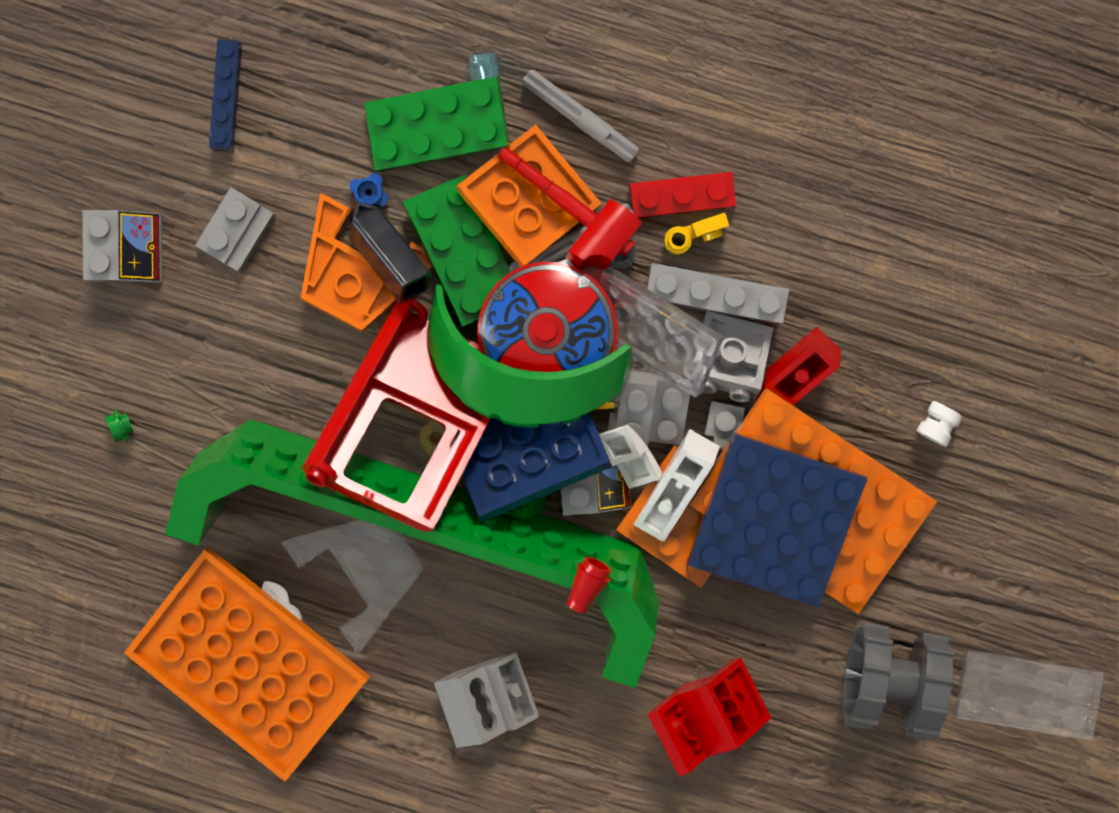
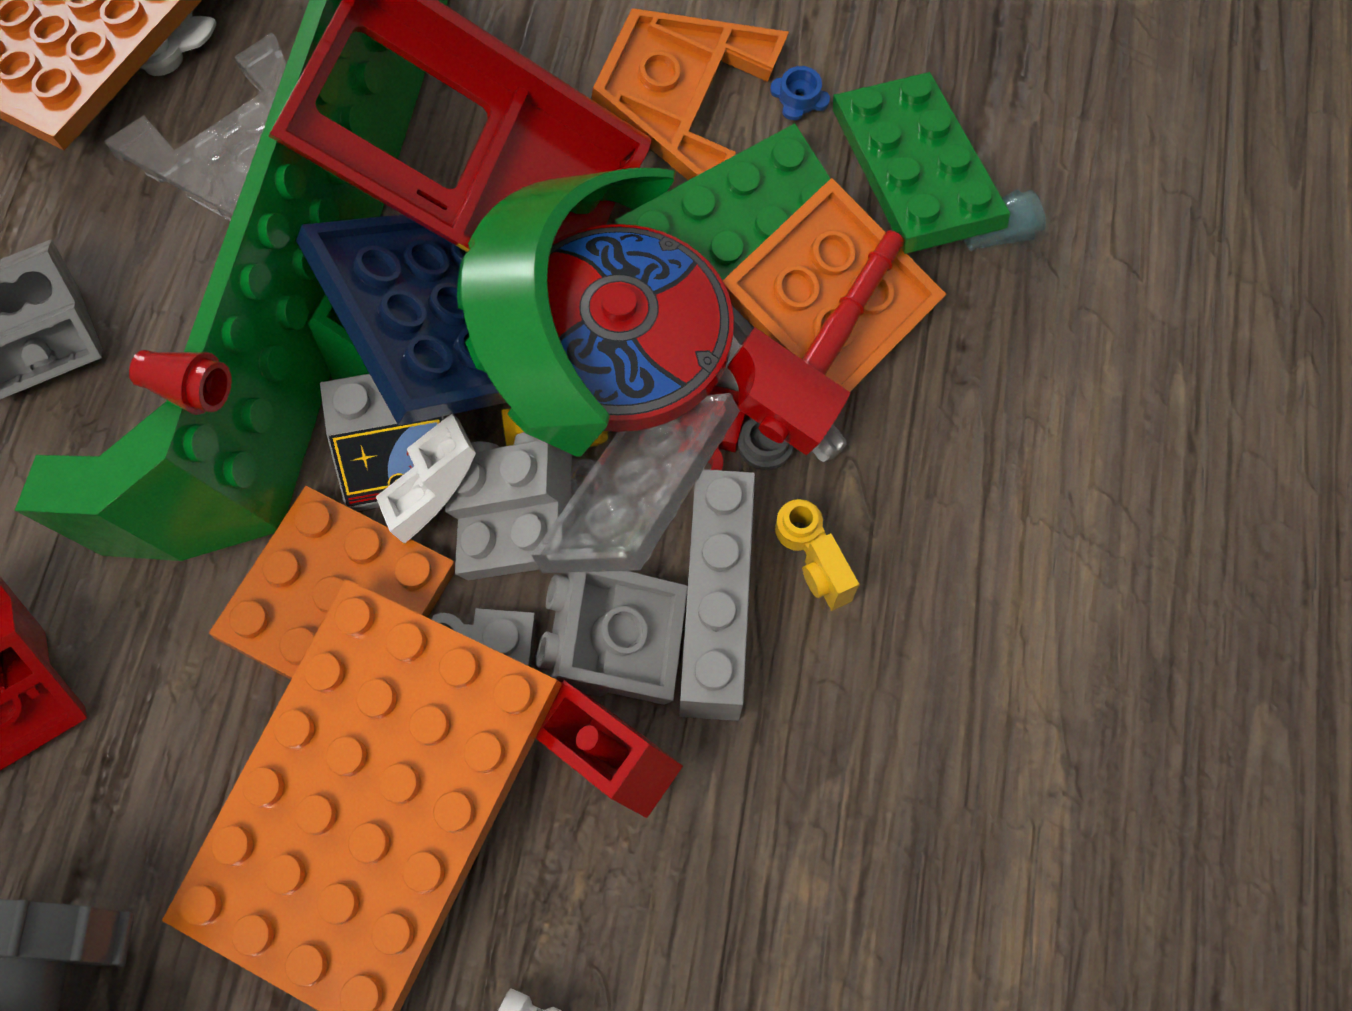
camera: 75 degrees right, 20 degrees down
(387, 252) = (712, 104): black piece -> none
(581, 116) = (970, 364): light grey axle -> none
(677, 485) = (385, 556): white slope -> none
(683, 195) = (875, 532): red plate -> none
(776, 520) = (323, 730): dark blue plate -> none

